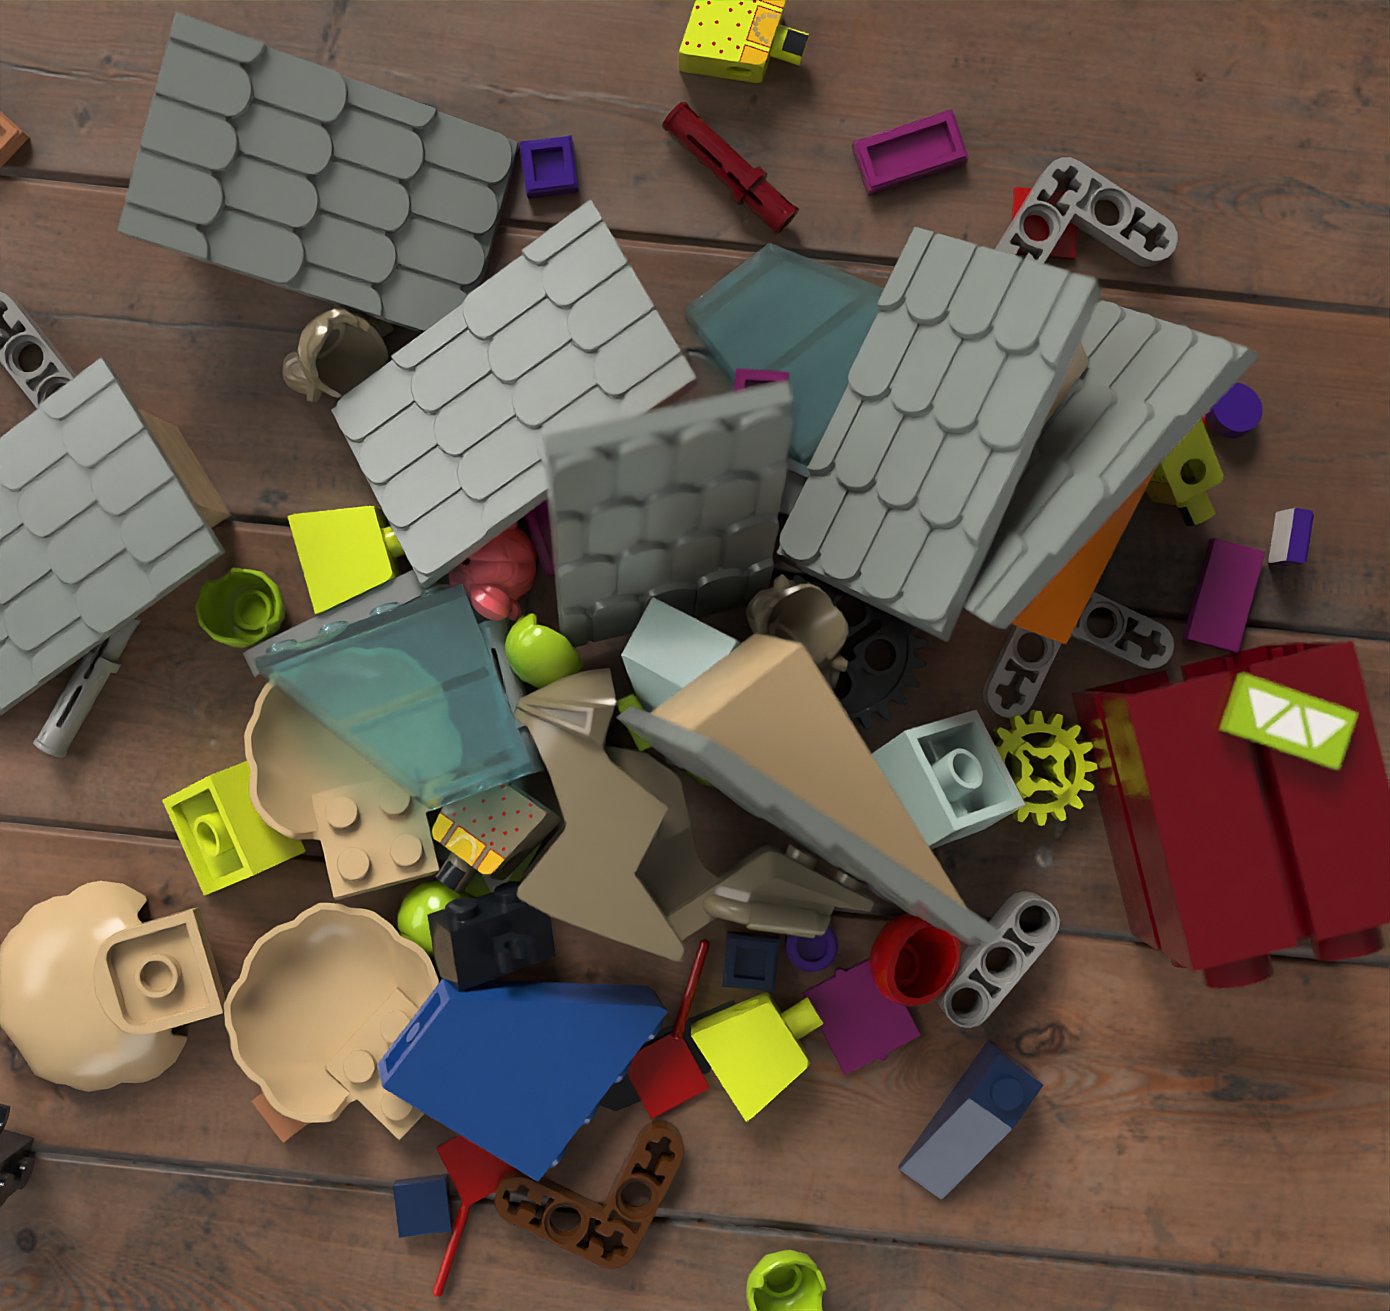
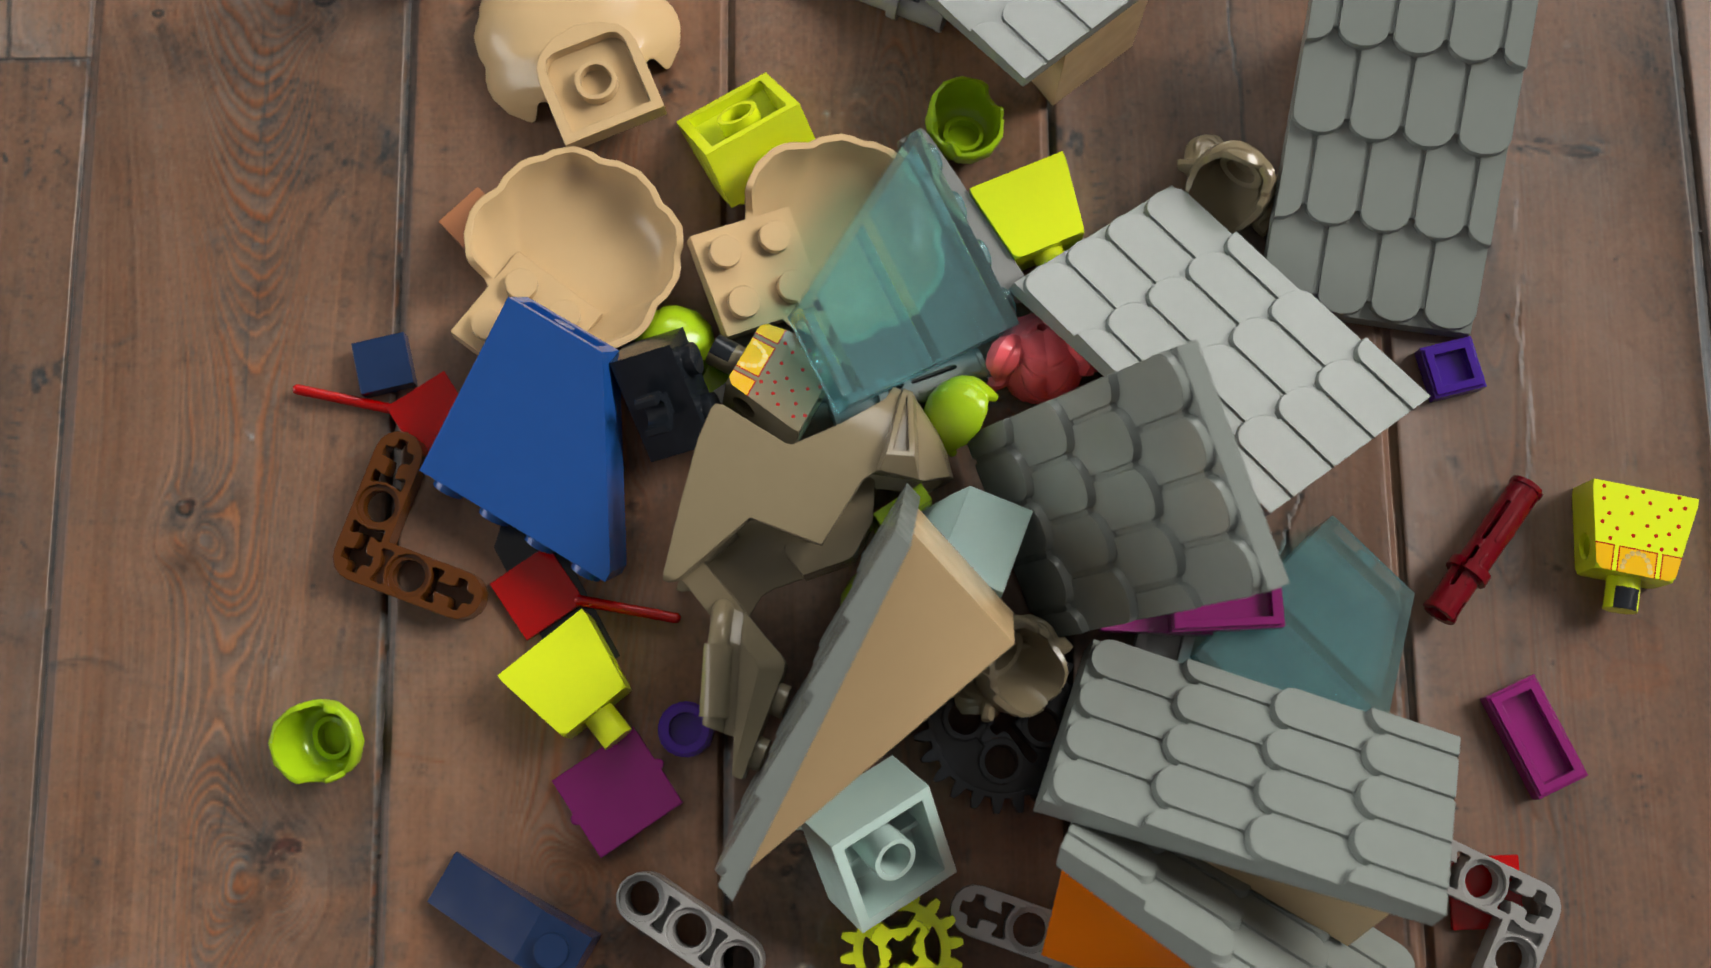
camera: 85 degrees right, 10 degrees down
(750, 961) = (662, 667): dark blue tile -> none
(913, 960) = (681, 836): red hat -> none

